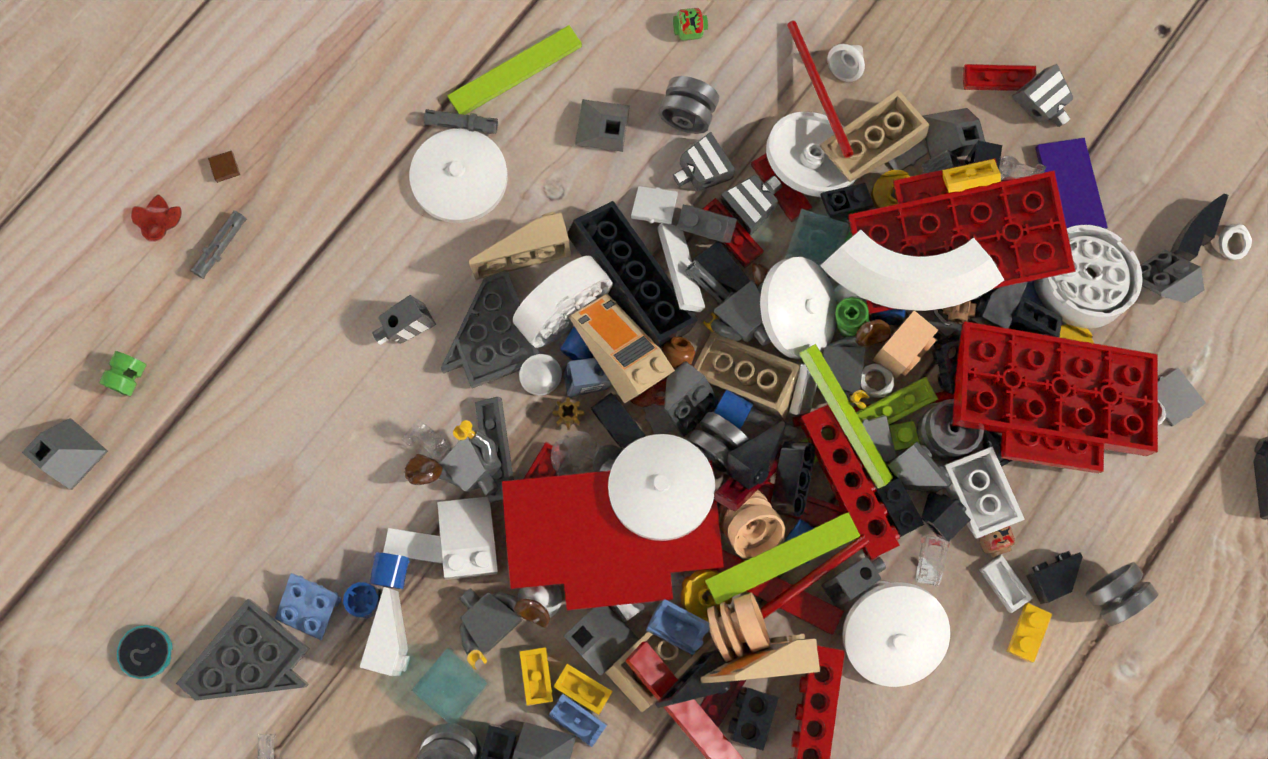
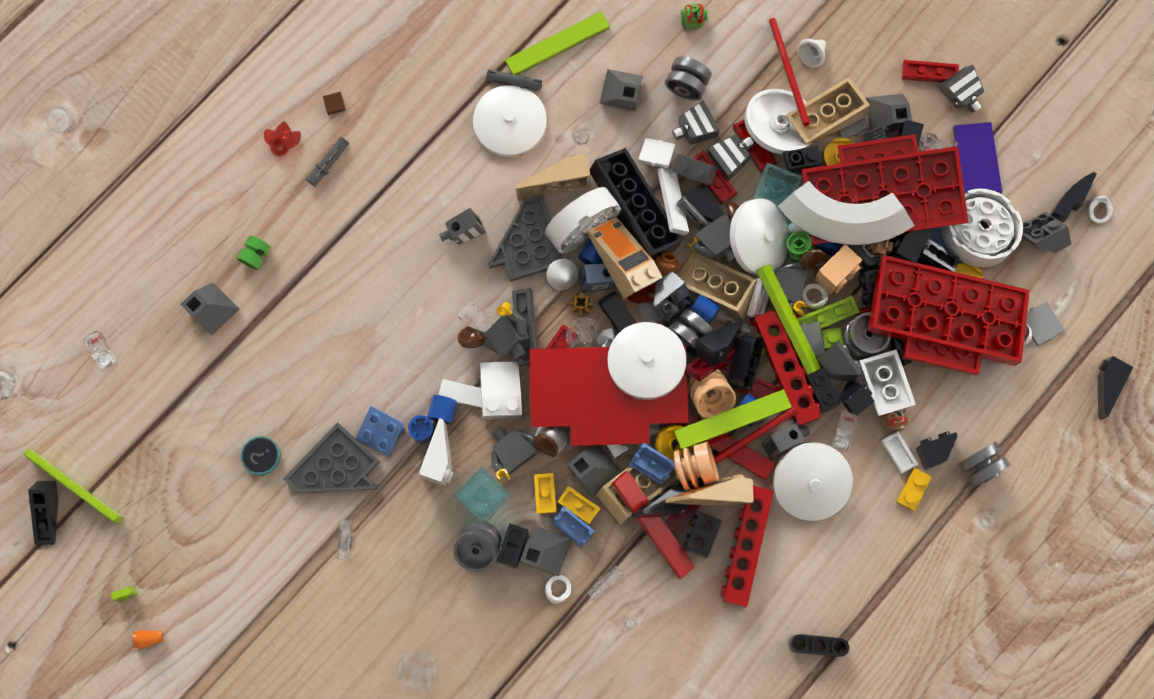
camera: 10 degrees right, 0 degrees up
(971, 176) = (895, 146): yellow plate -> none

